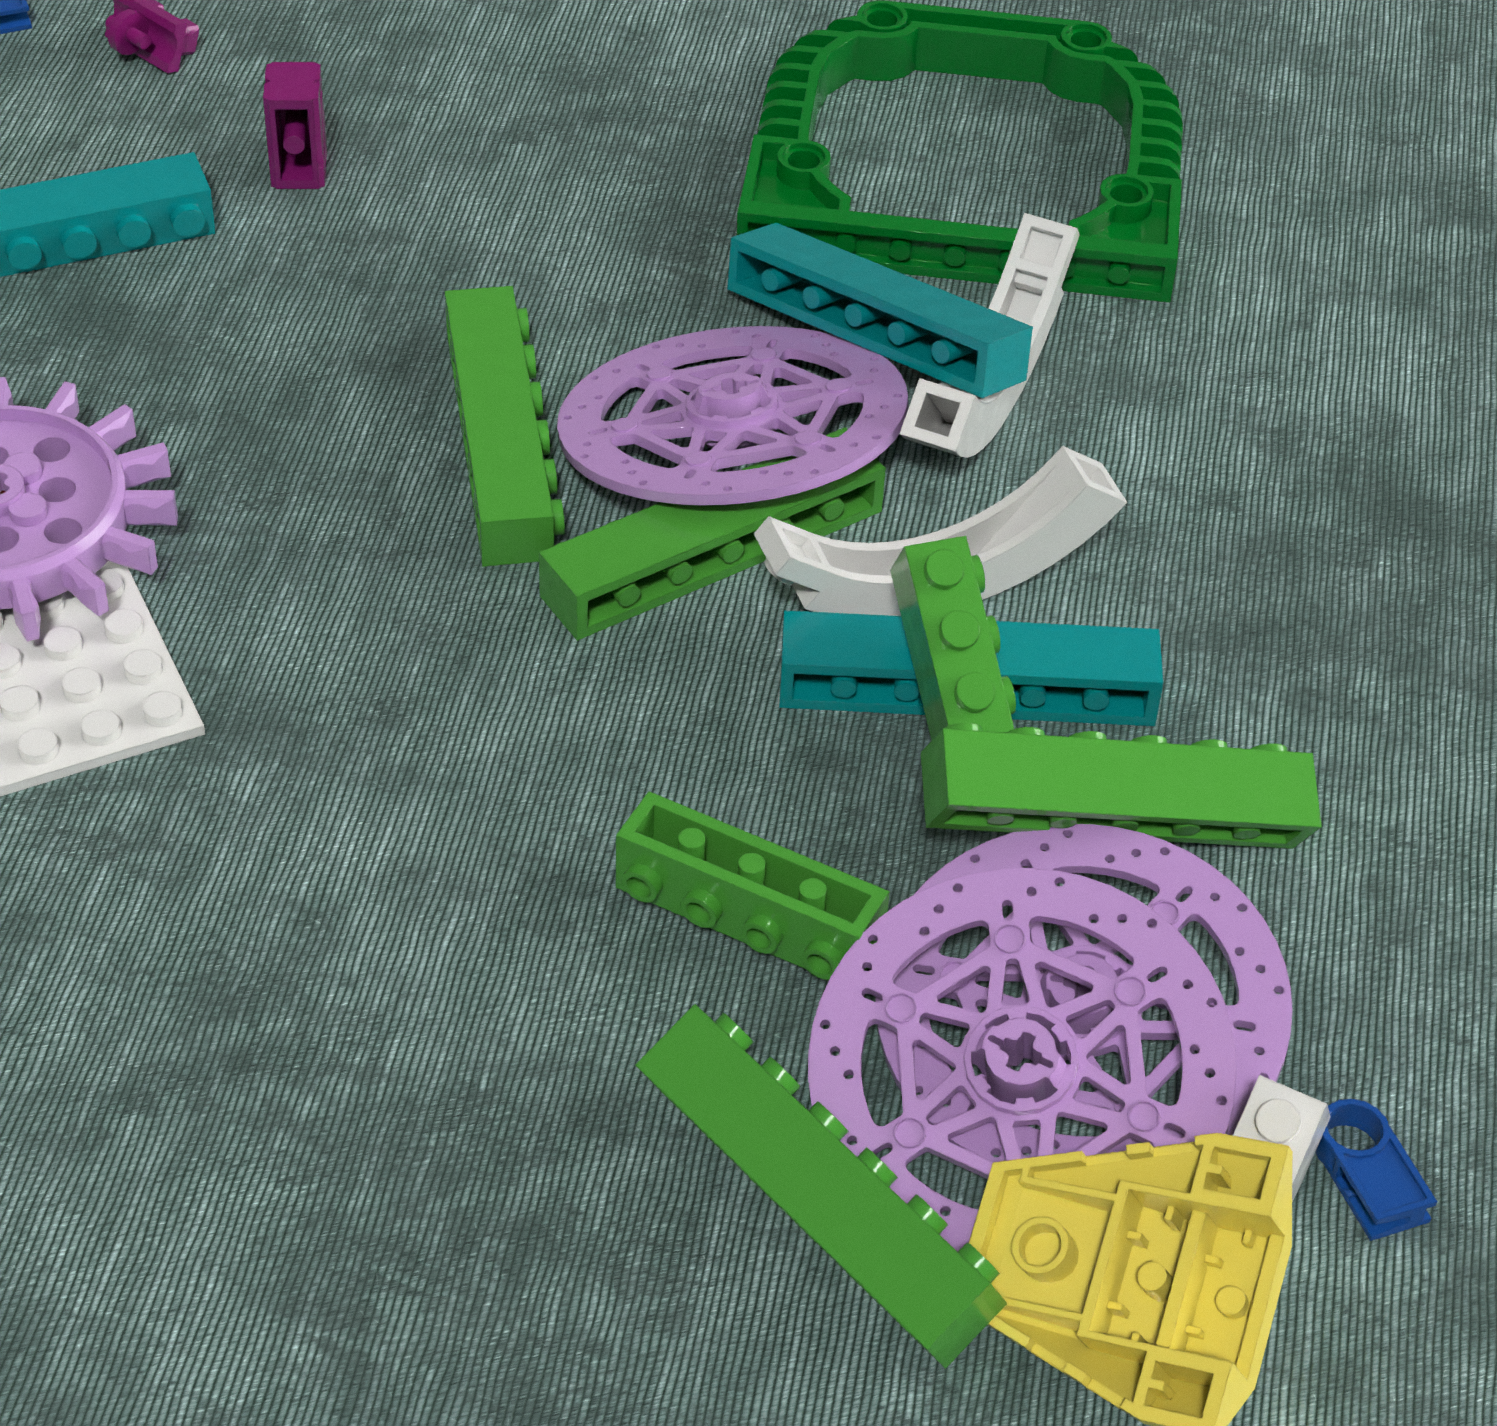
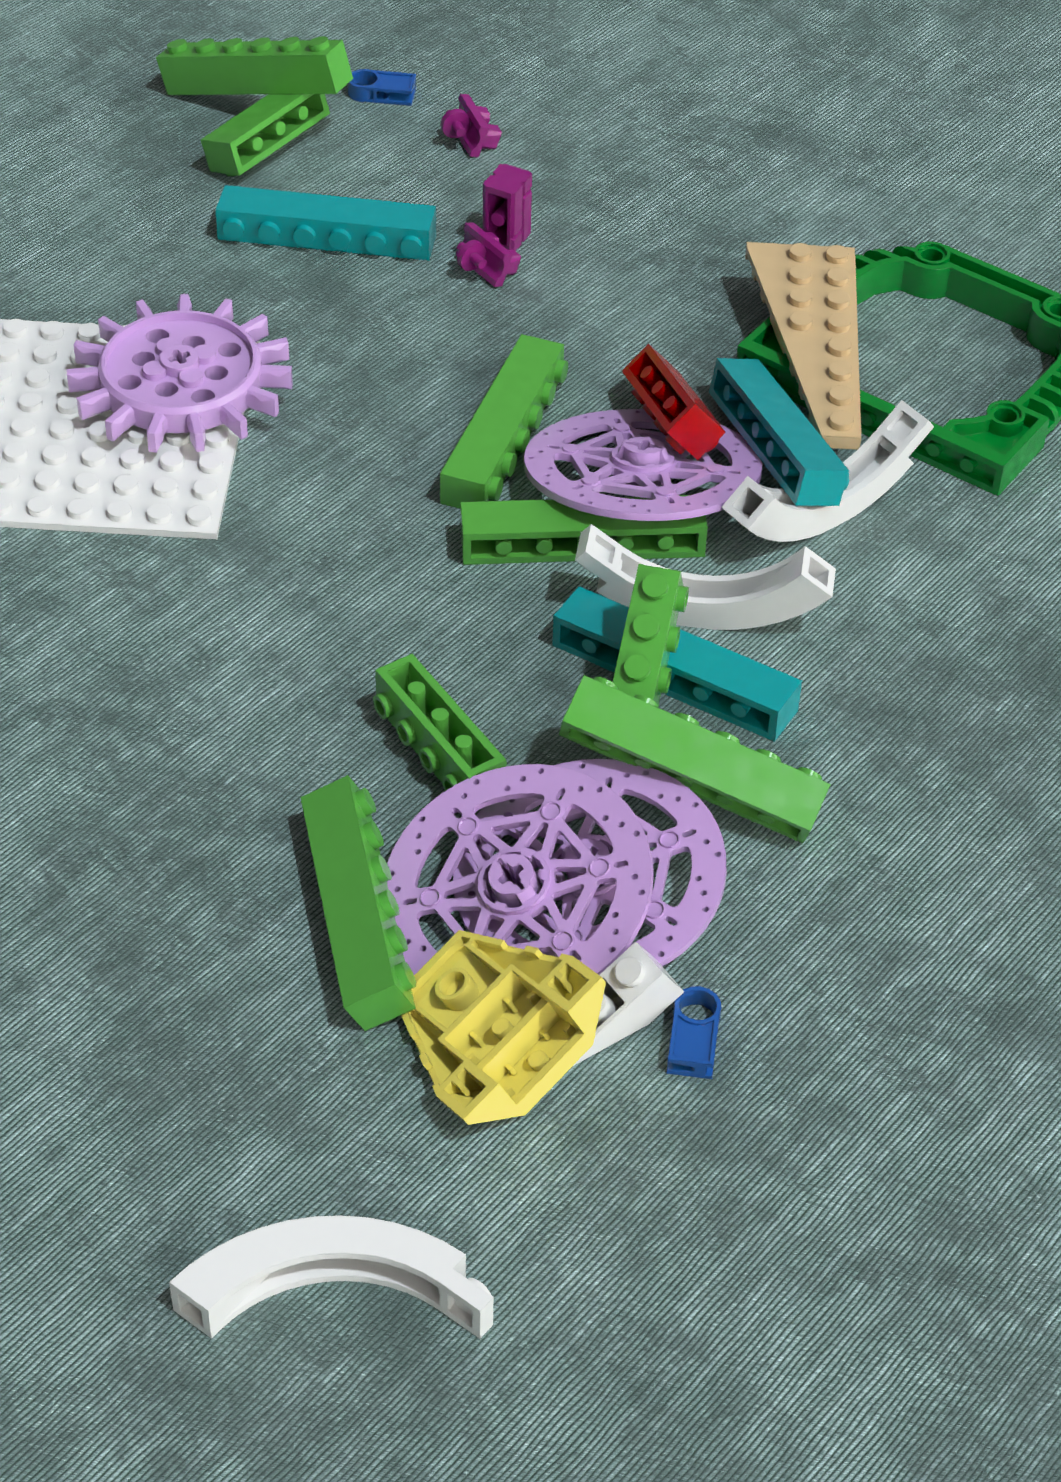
camera: 30 degrees right, 0 degrees up
(299, 200) = (486, 255): none -> magenta hips
(721, 314) = (672, 404): none -> red brick
(823, 151) = (816, 325): none -> tan wing

